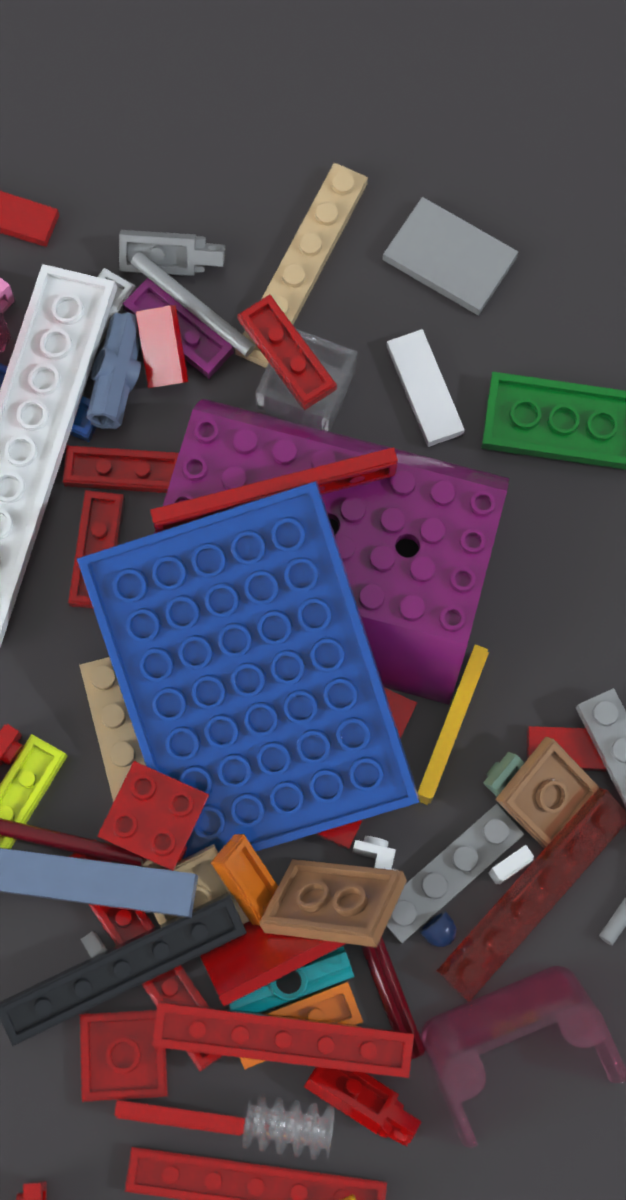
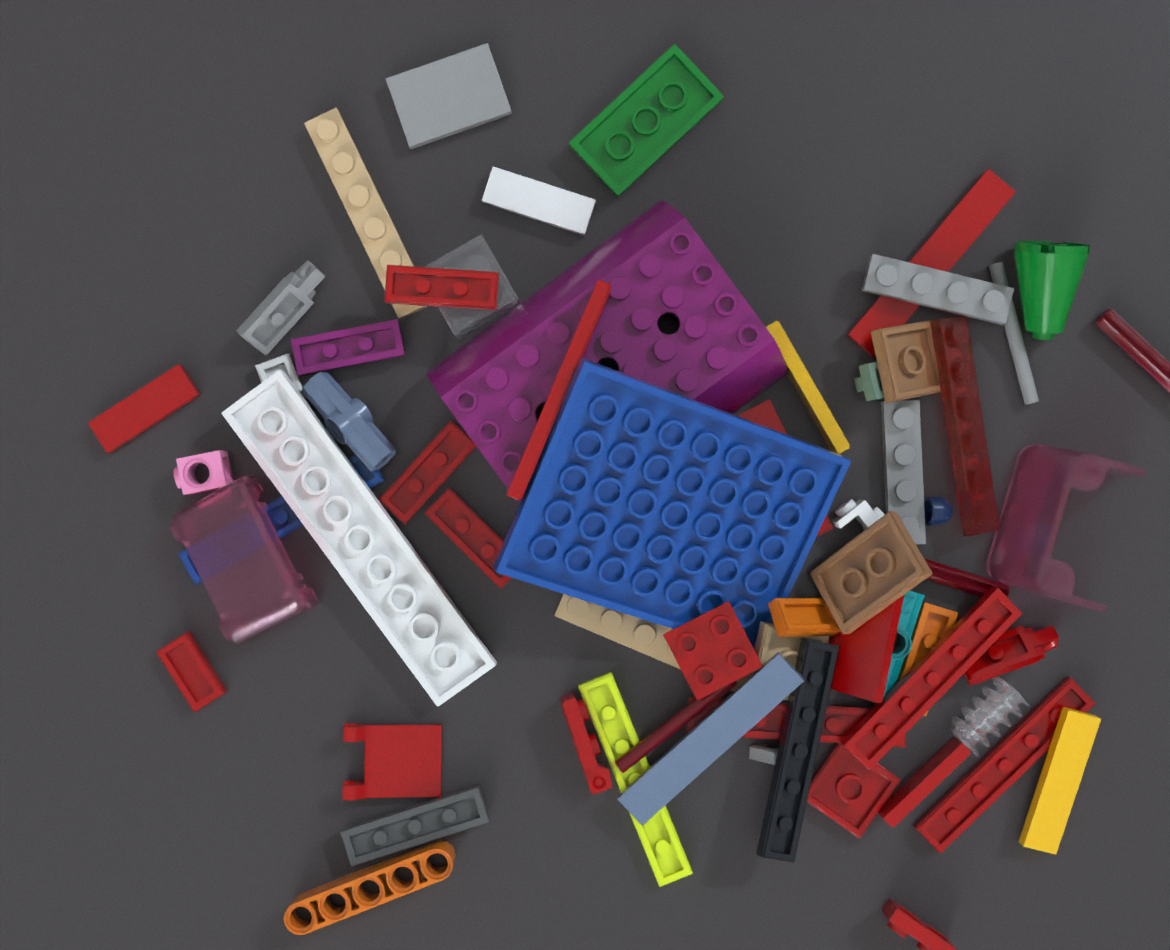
camera: 50 degrees left, 15 degrees up
(162, 346) = (356, 372): tile -> none
(193, 304) = (339, 323): light grey bar -> none
(511, 865) = (934, 426): white tile -> none

